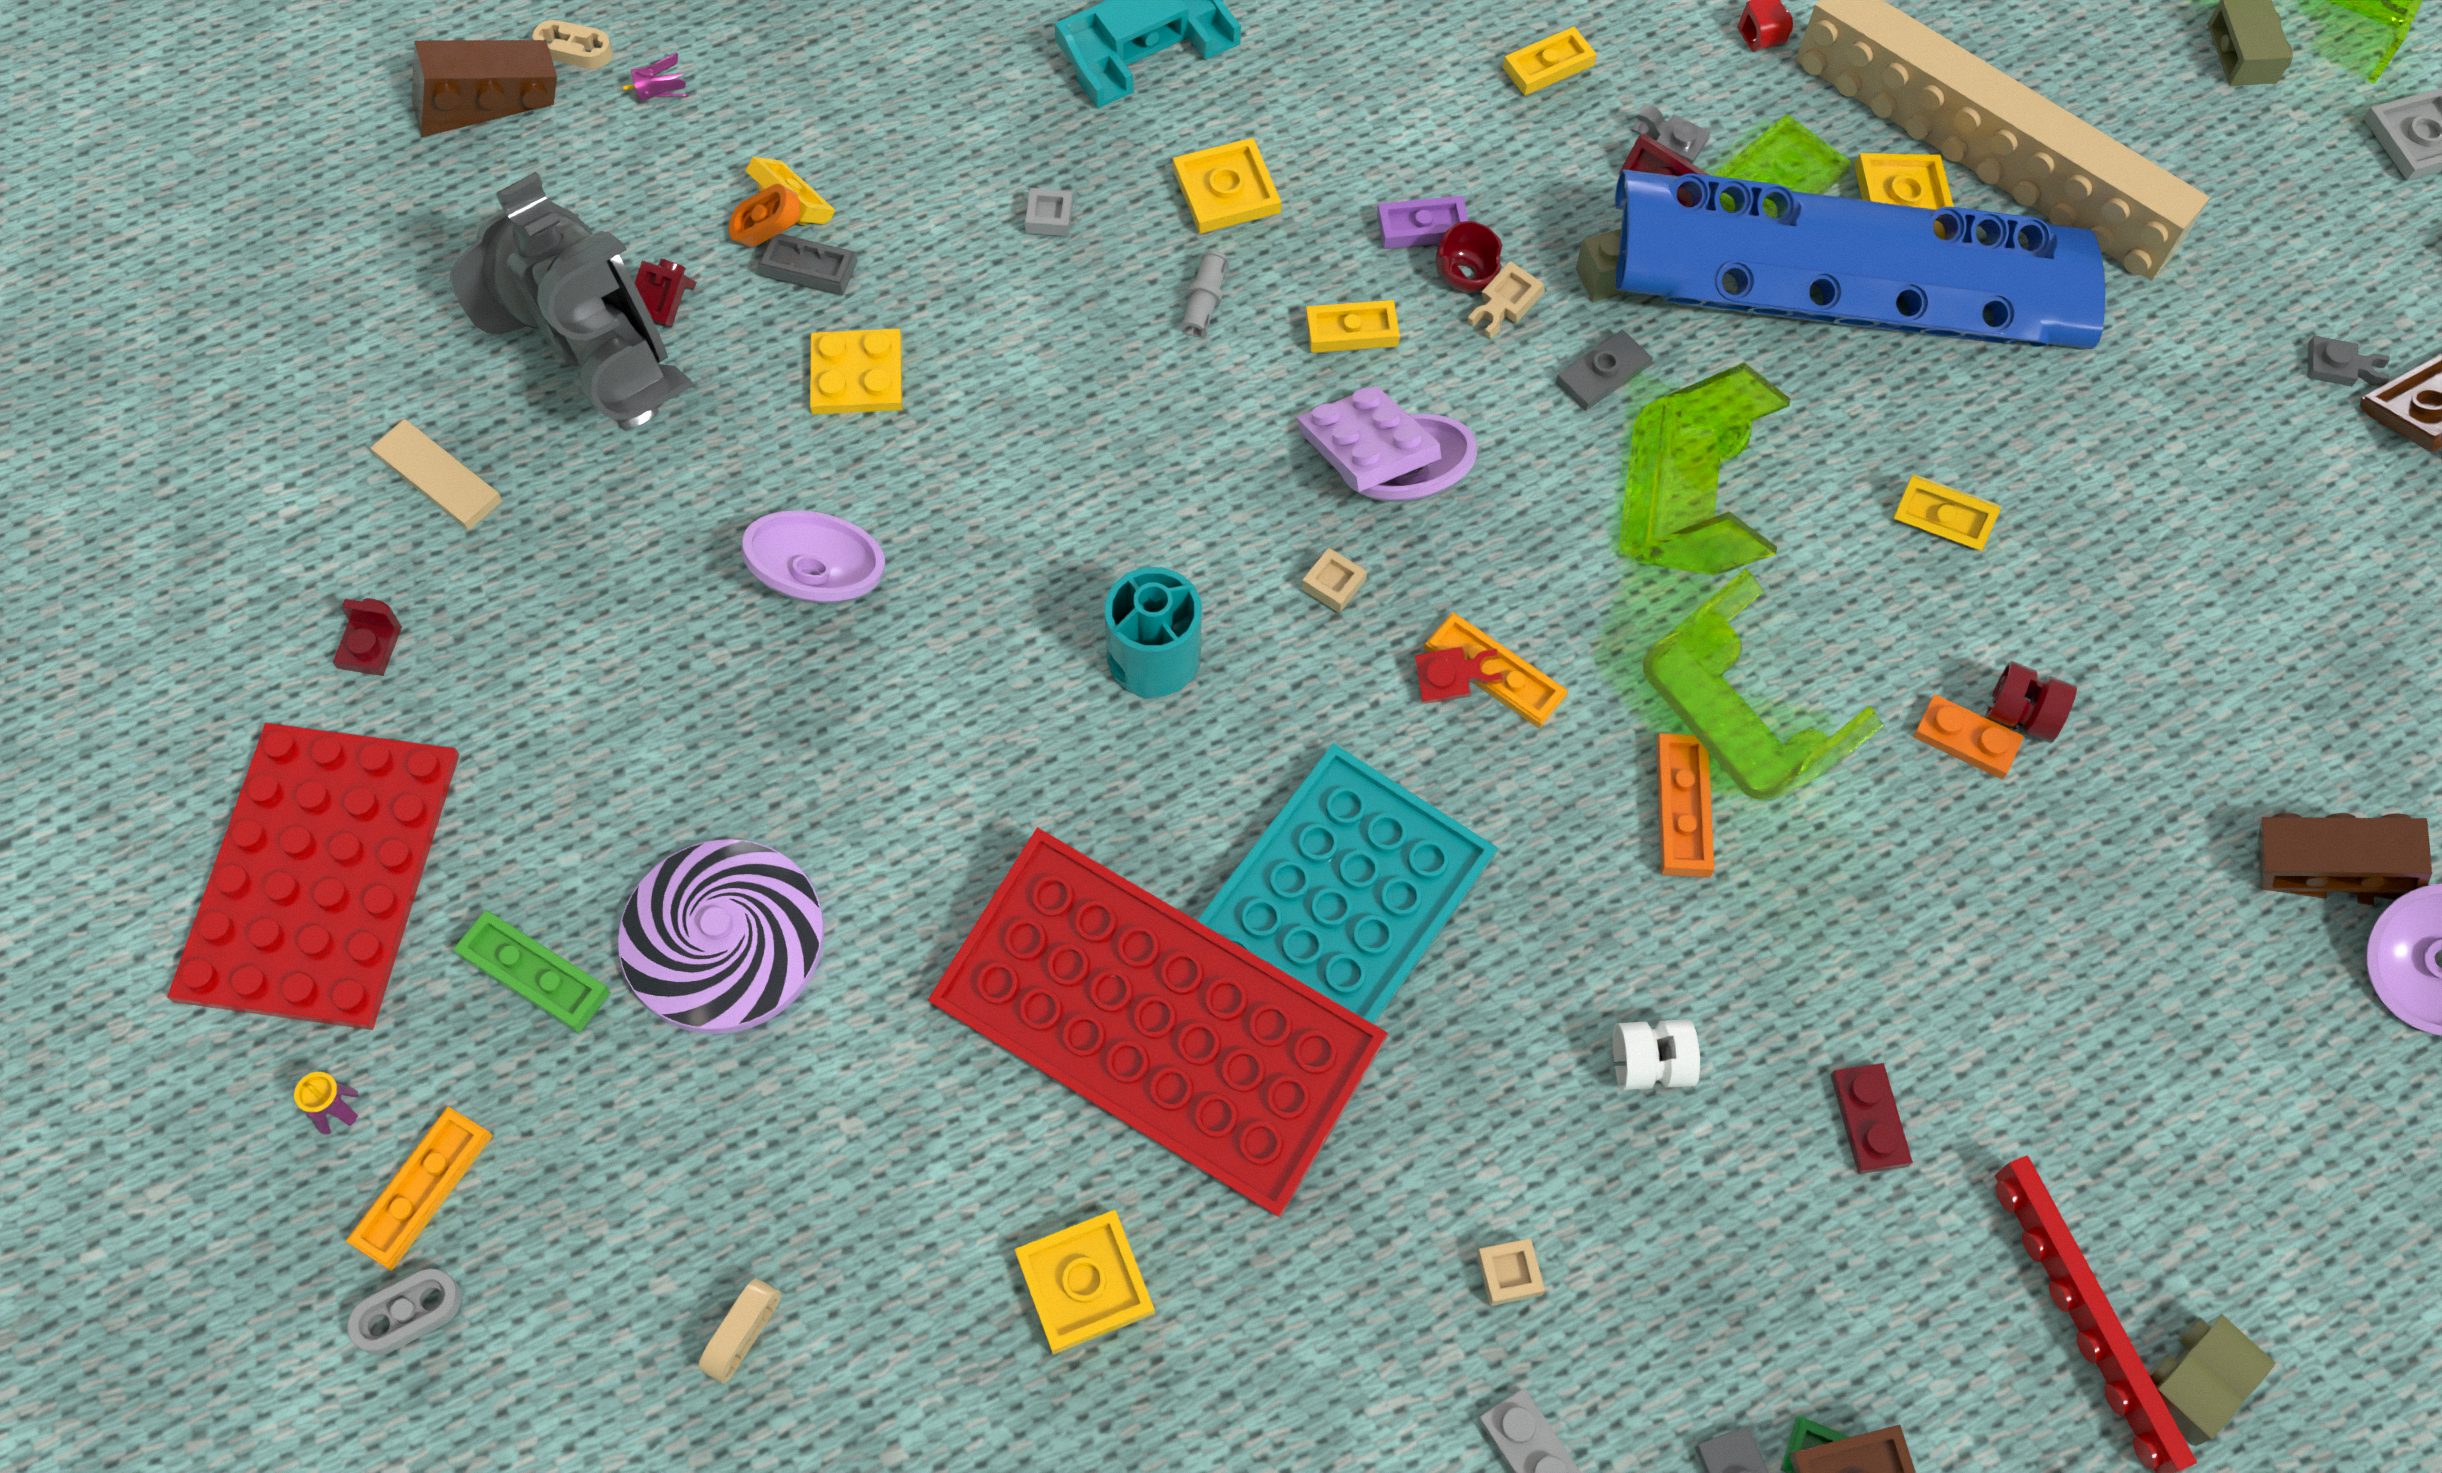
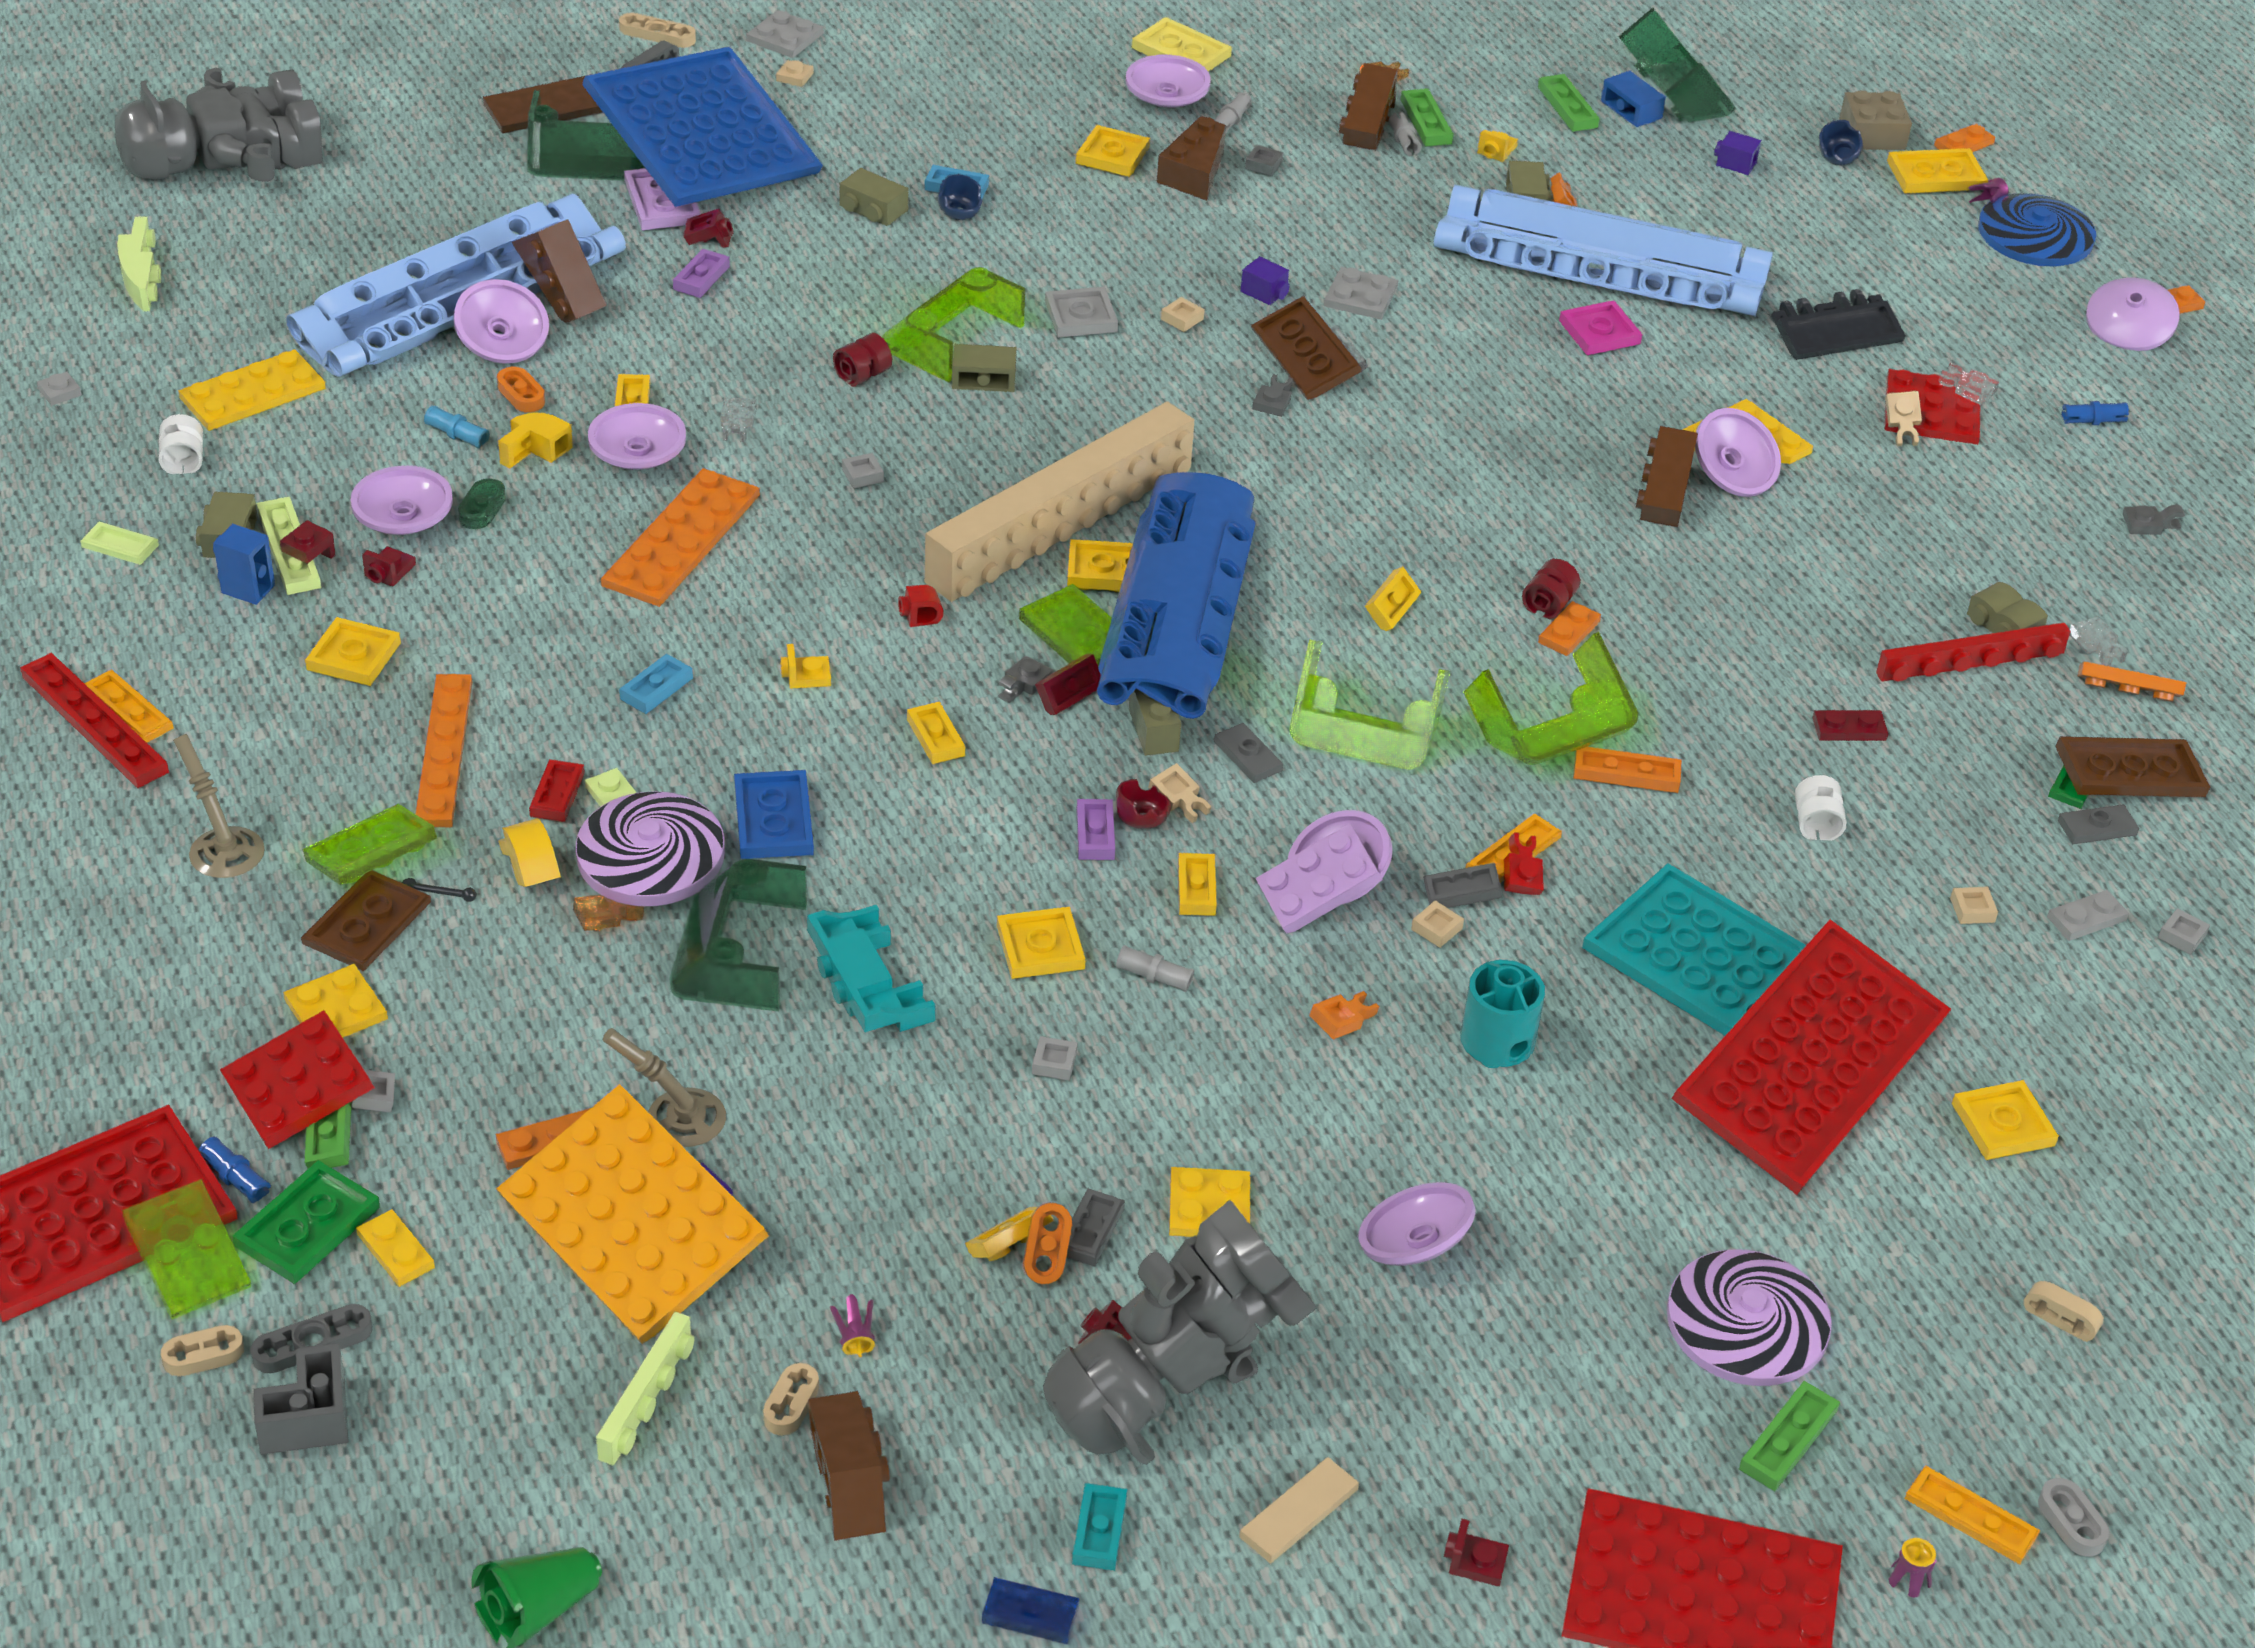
camera: 85 degrees left, 20 degrees down
(311, 250) = (1030, 1610): none -> clear blue plate
(409, 299) = (1099, 1526): none -> teal plate
(1159, 480) = (1341, 1016): none -> orange plate
(1406, 606) = (1463, 886): none -> dark grey plate

